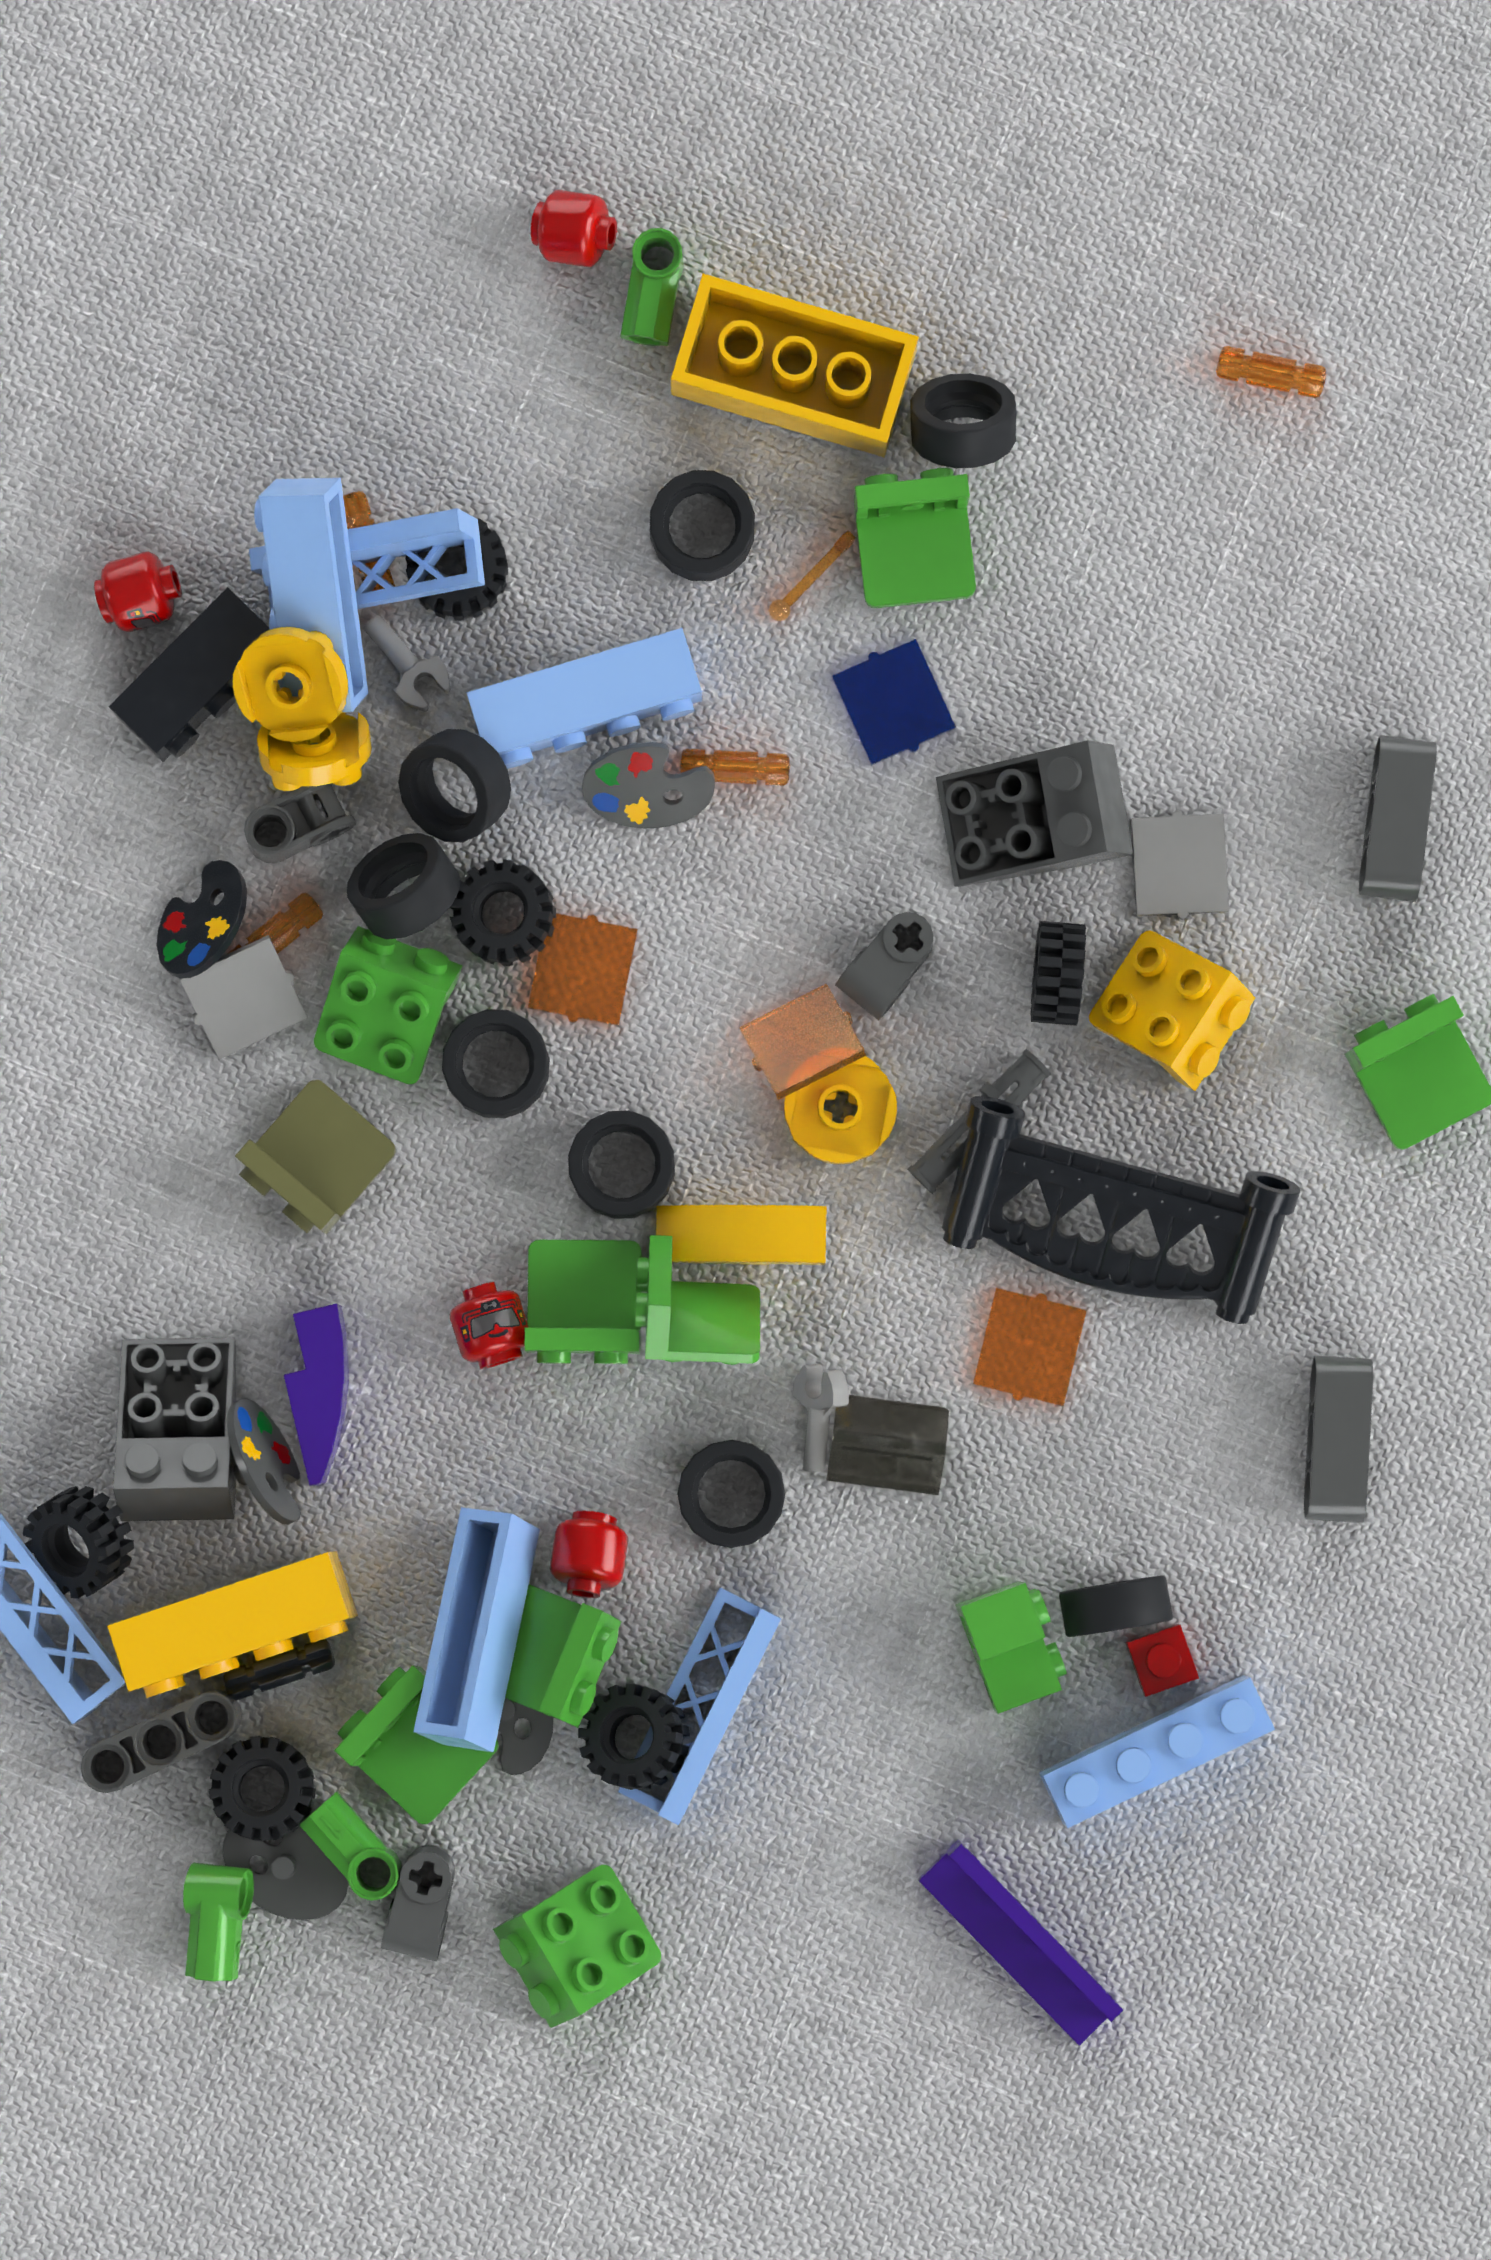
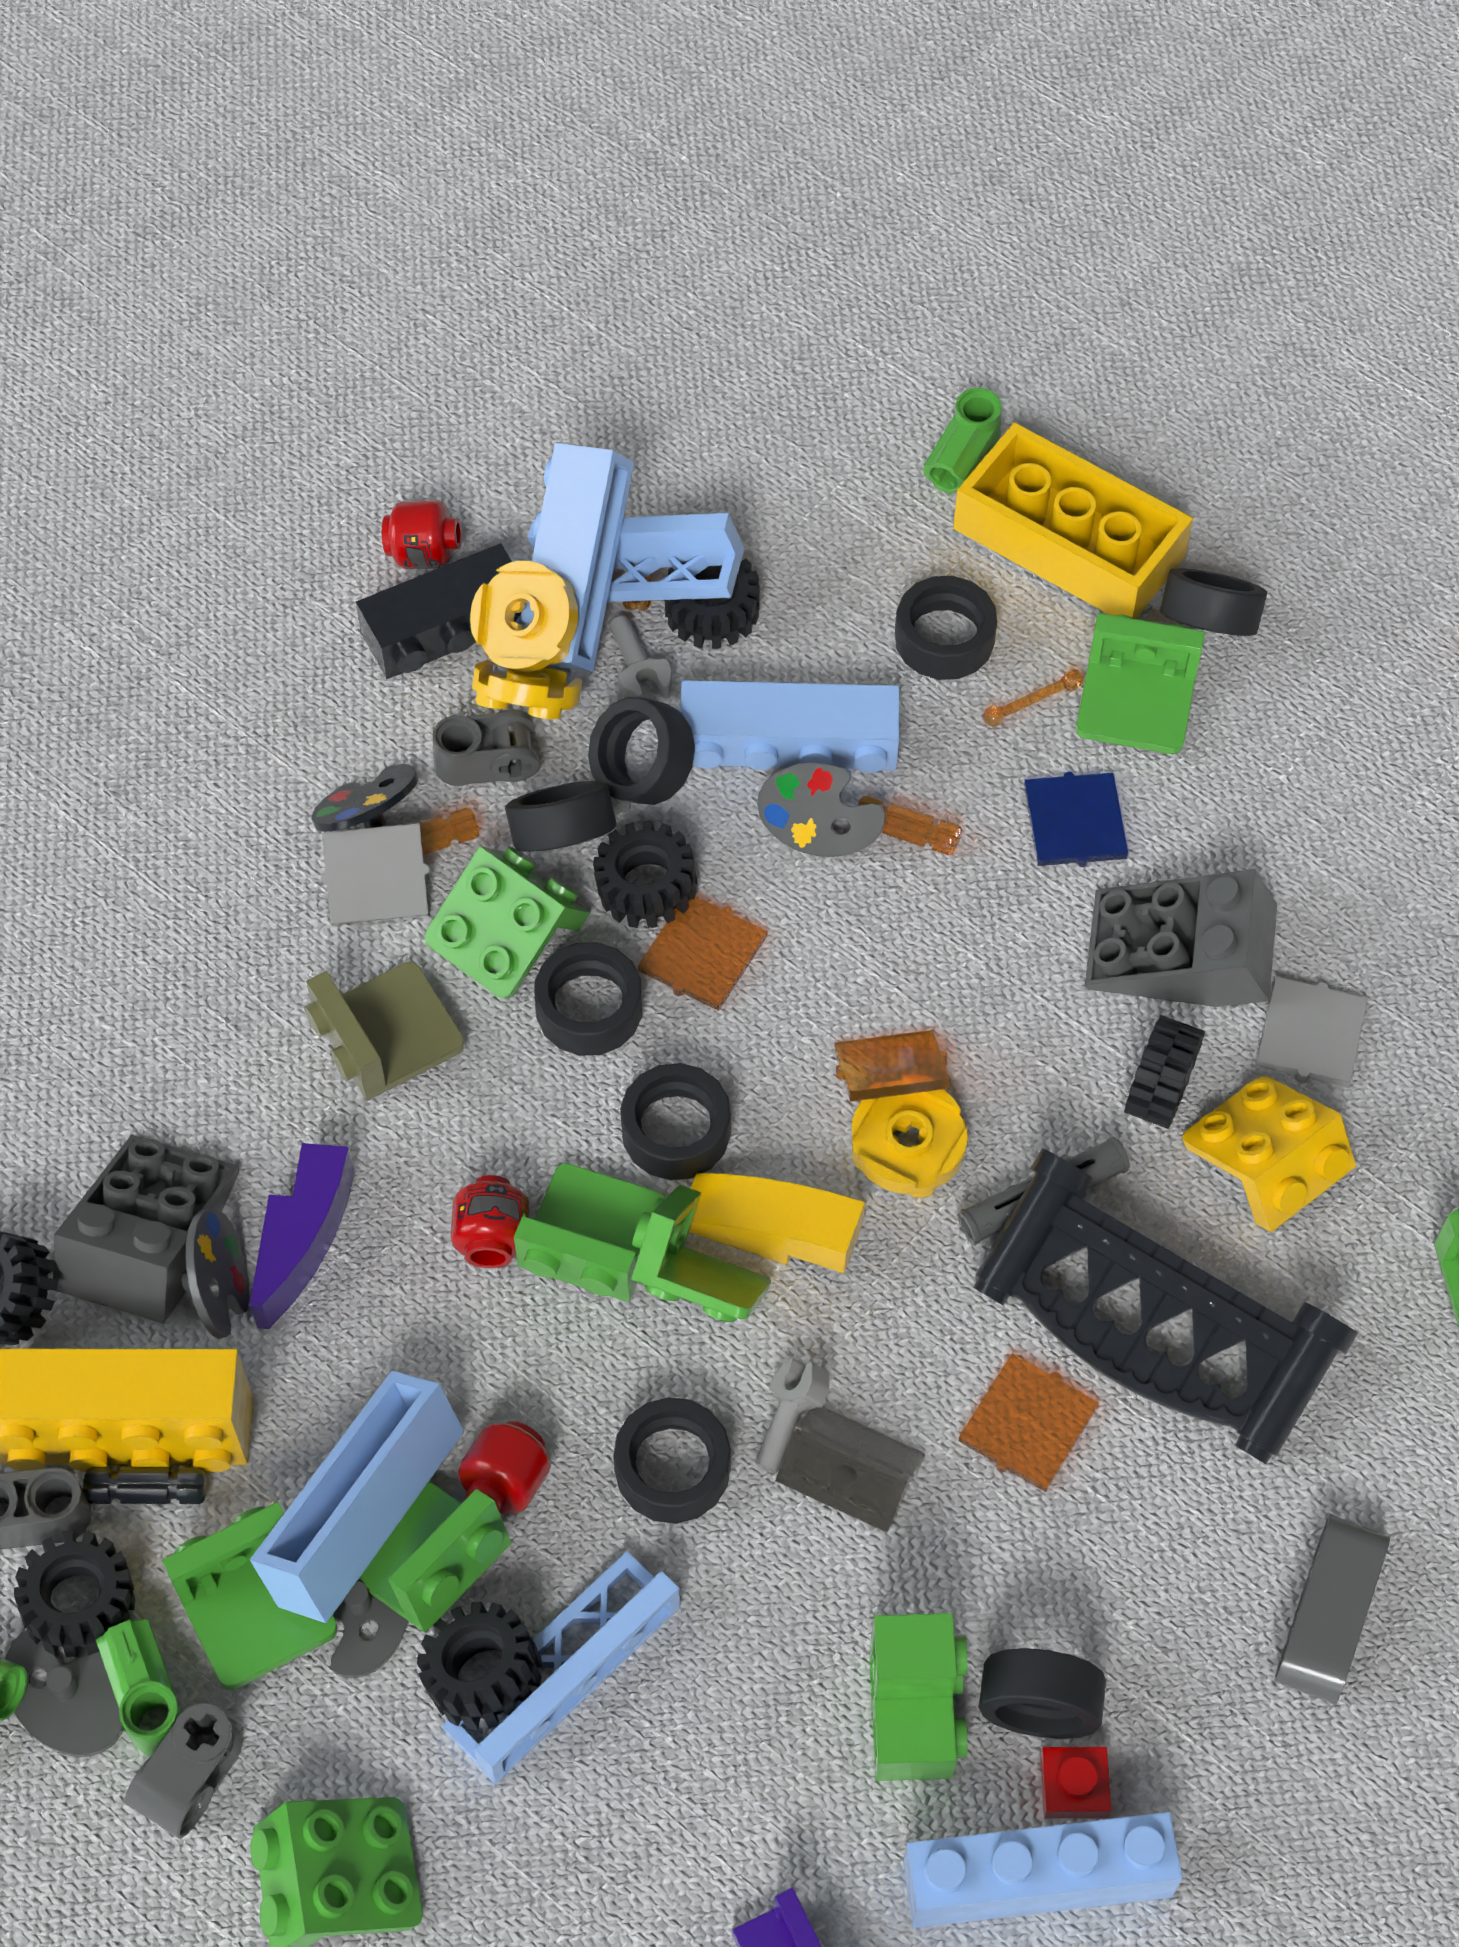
camera: 20 degrees right, 25 degrees down
(573, 228) = (910, 381): red head -> none
(883, 972) = (999, 1022): dark grey piece -> none

